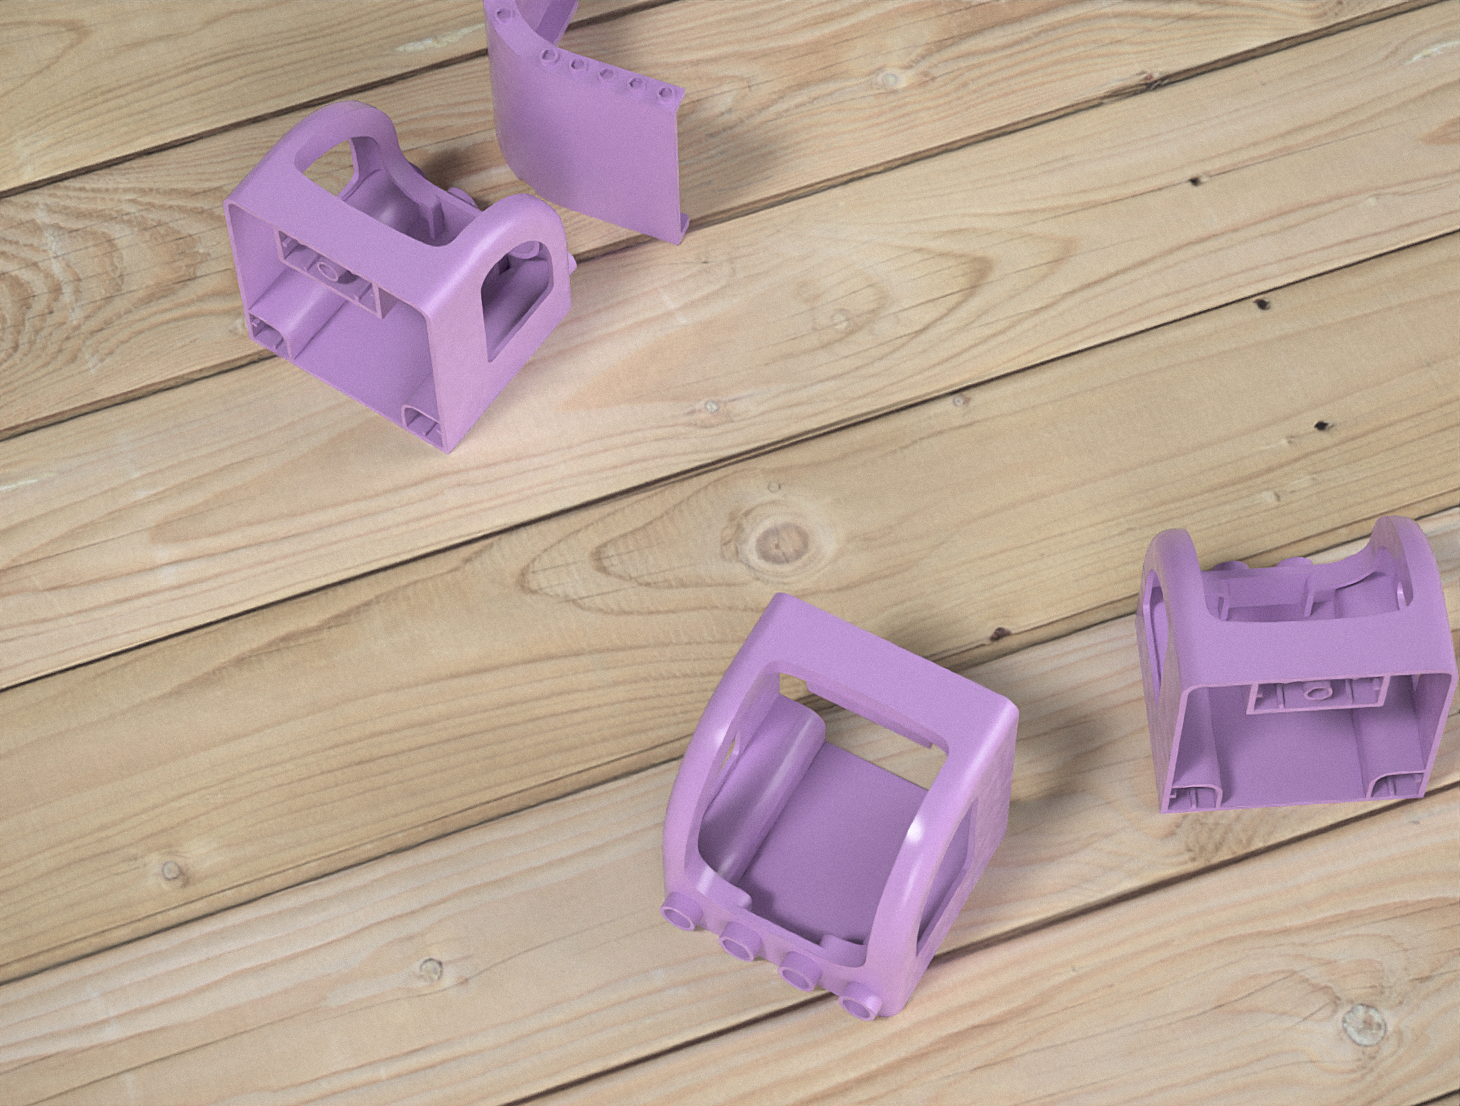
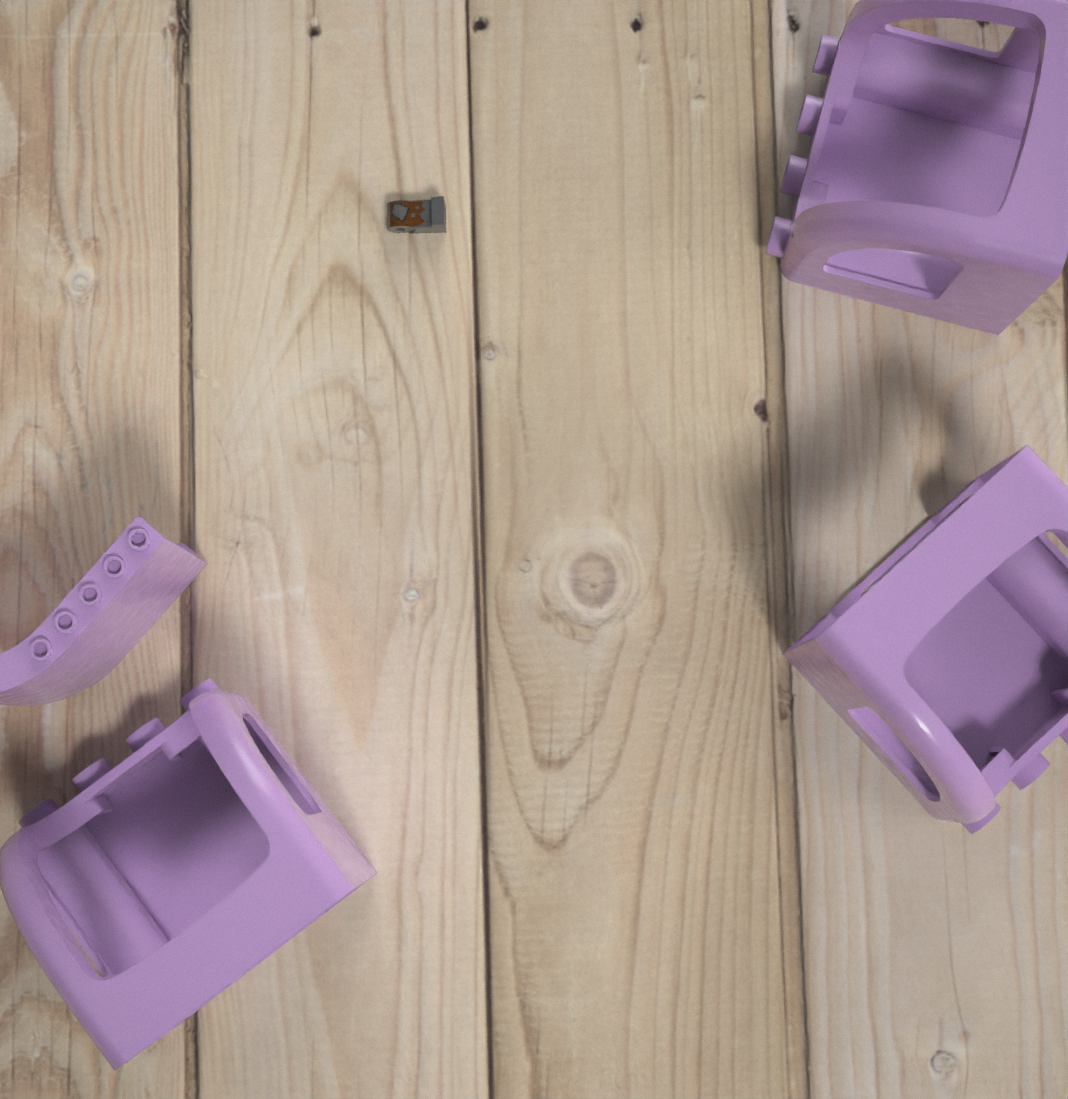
camera: 70 degrees left, 25 degrees up
(1060, 304) = (417, 216): none -> dark grey leg

